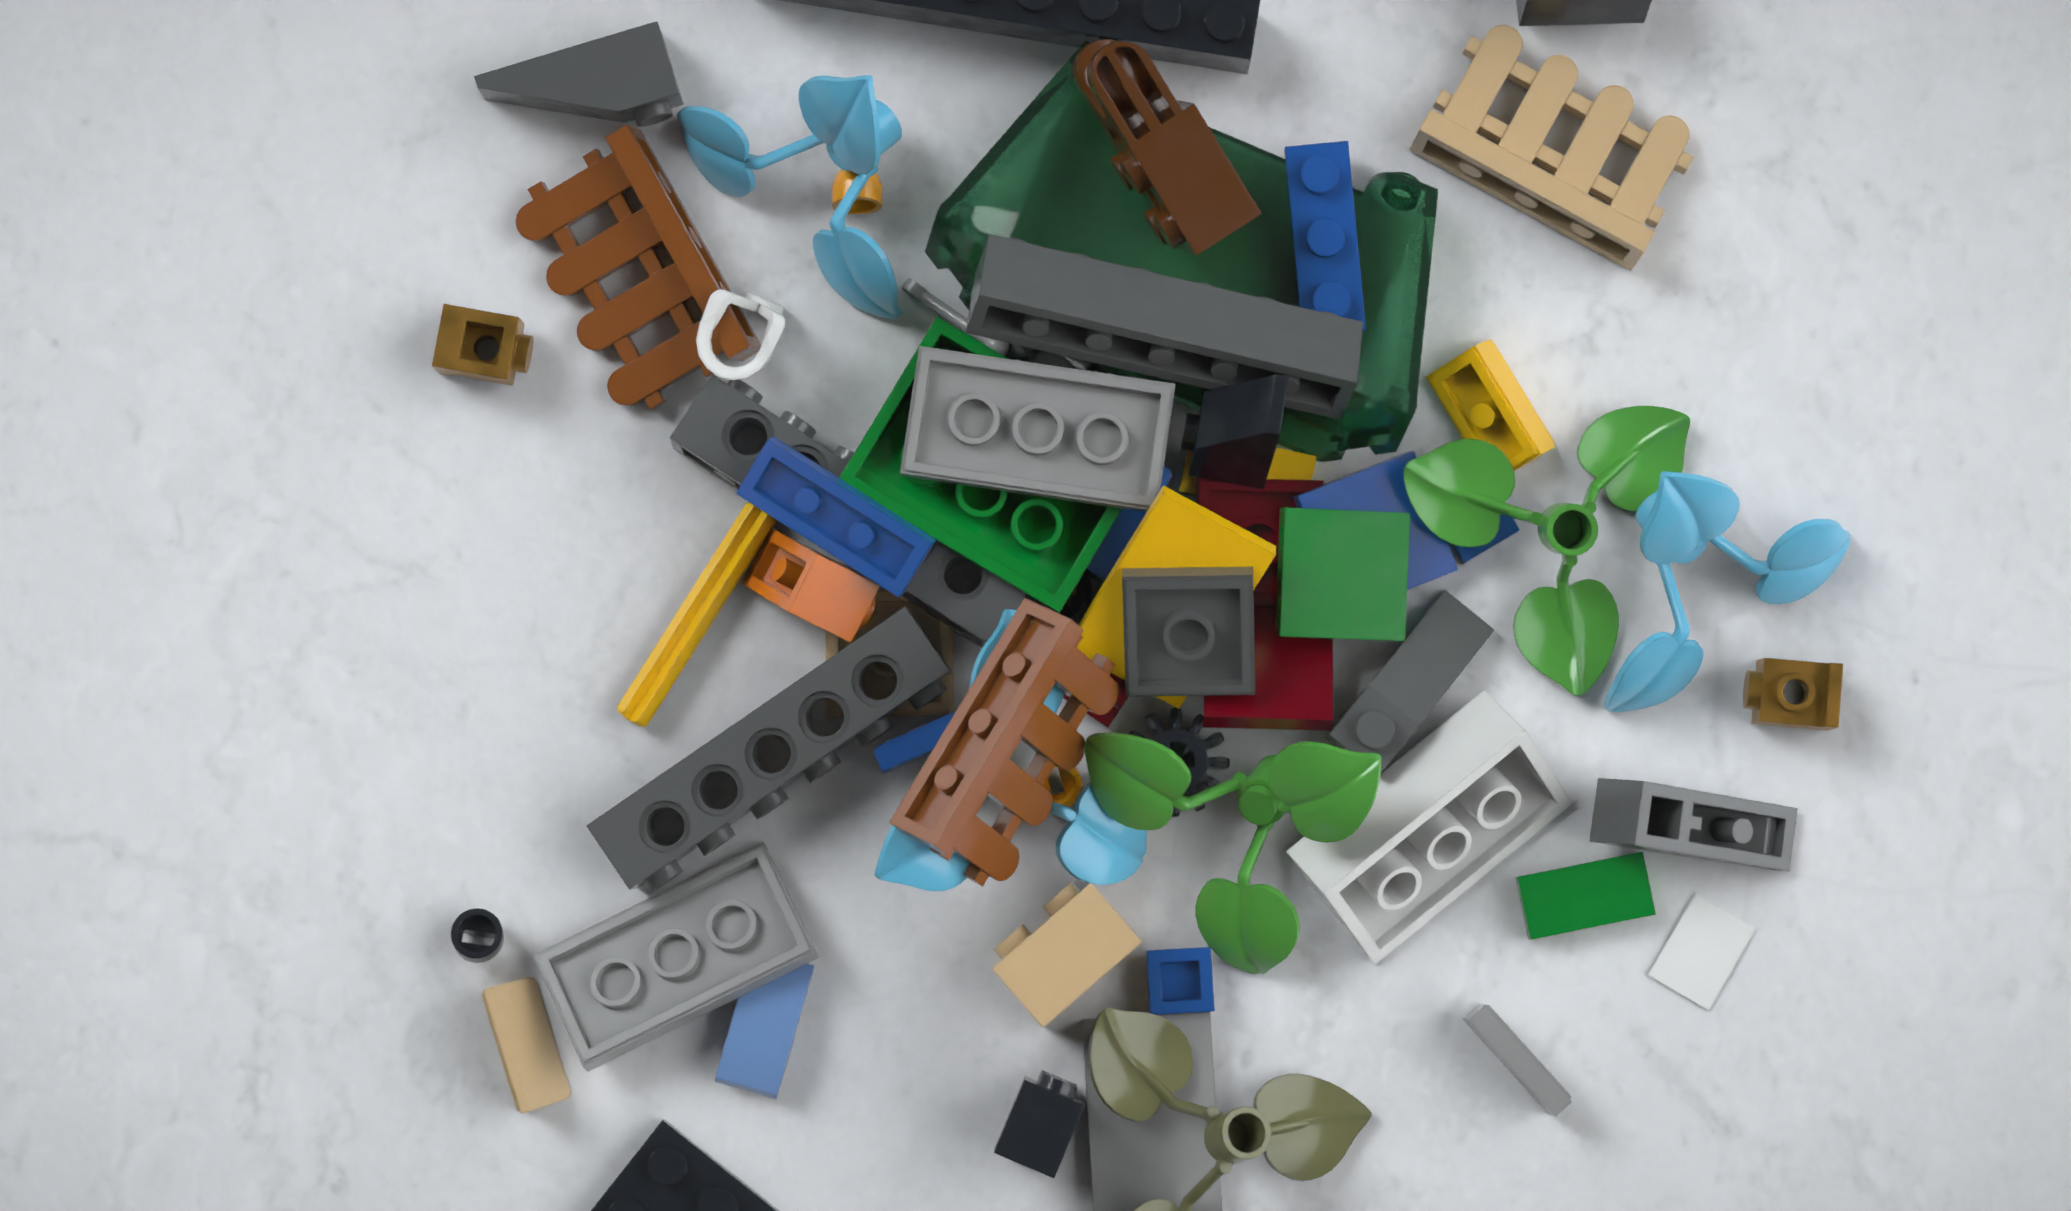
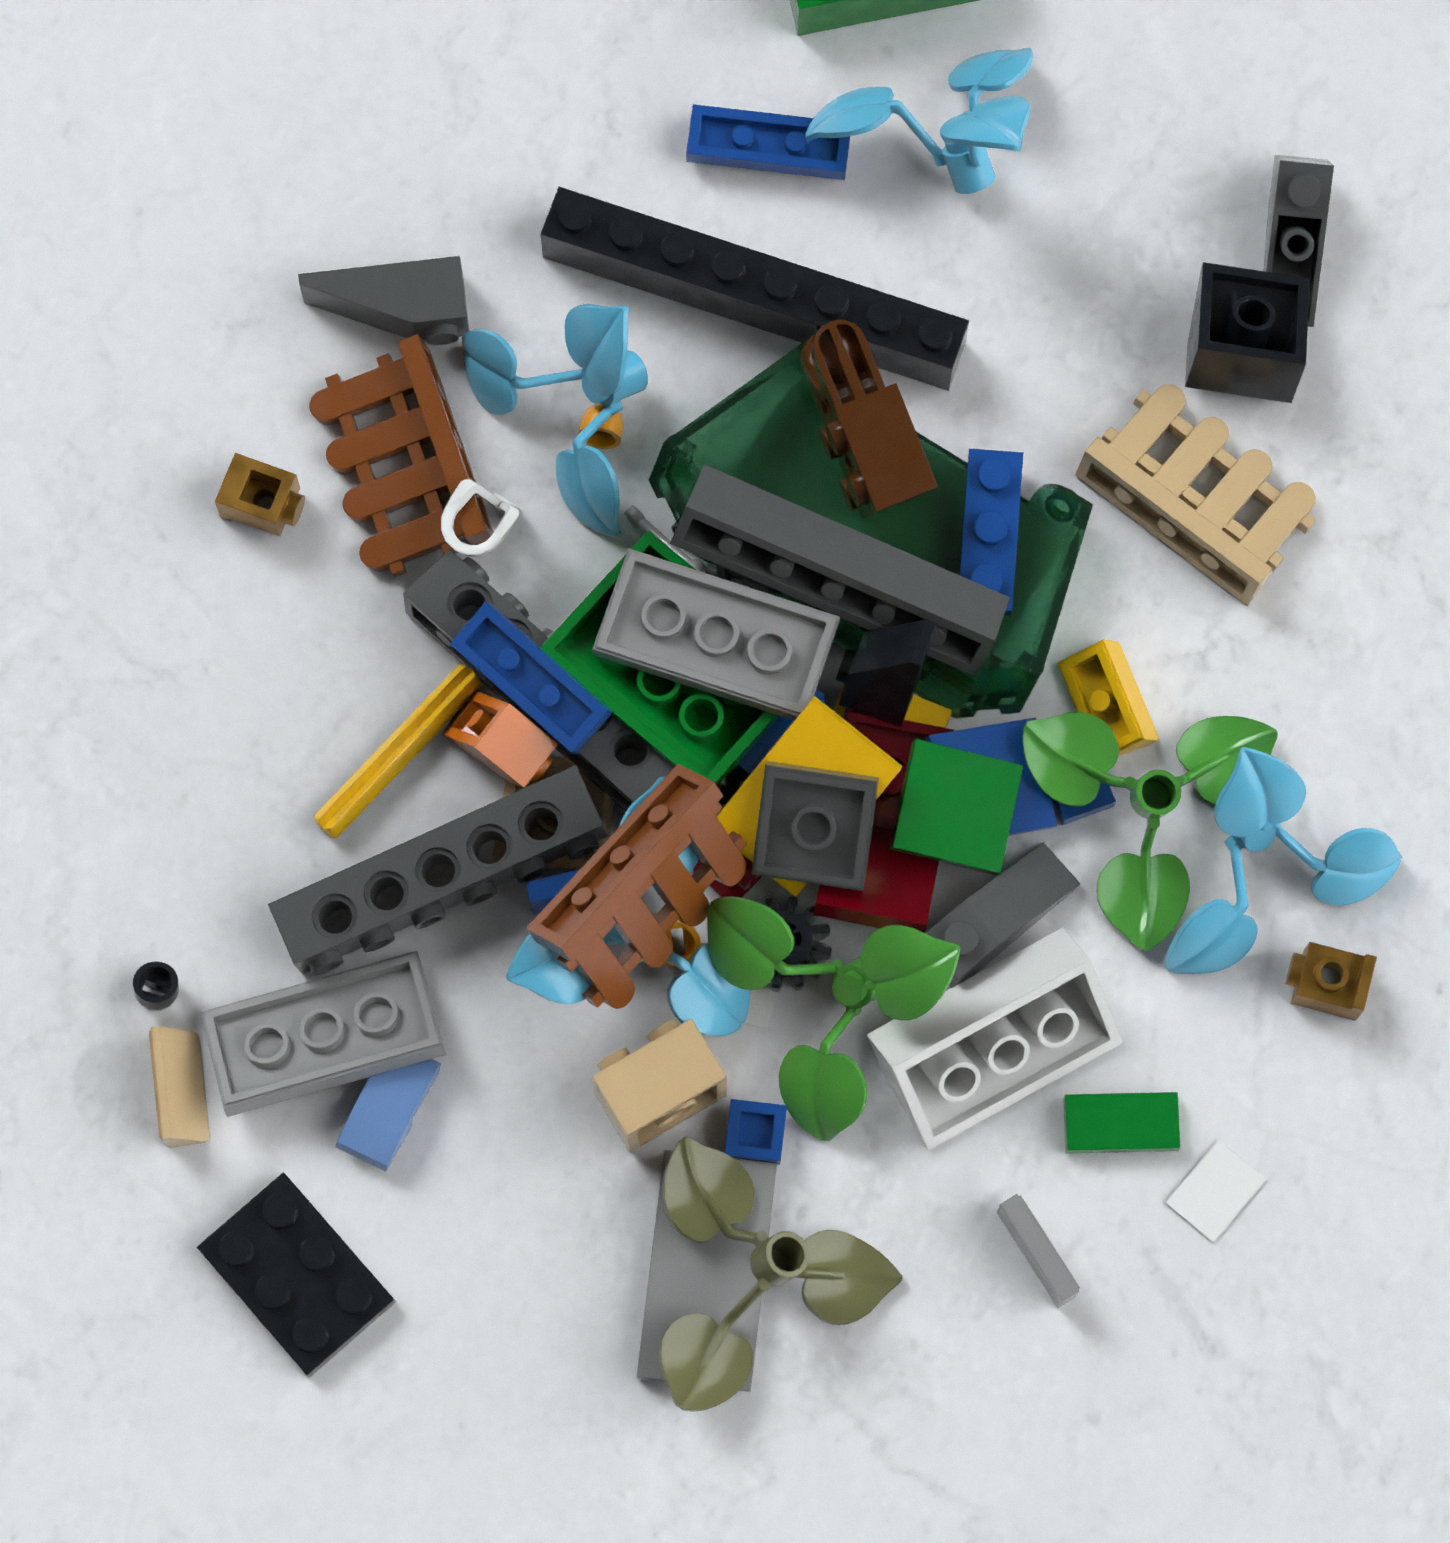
camera: 10 degrees right, 10 degrees down
(1041, 1123) = (610, 1226): black brick -> none
(1693, 824) = (1224, 1074): dark grey slope -> none

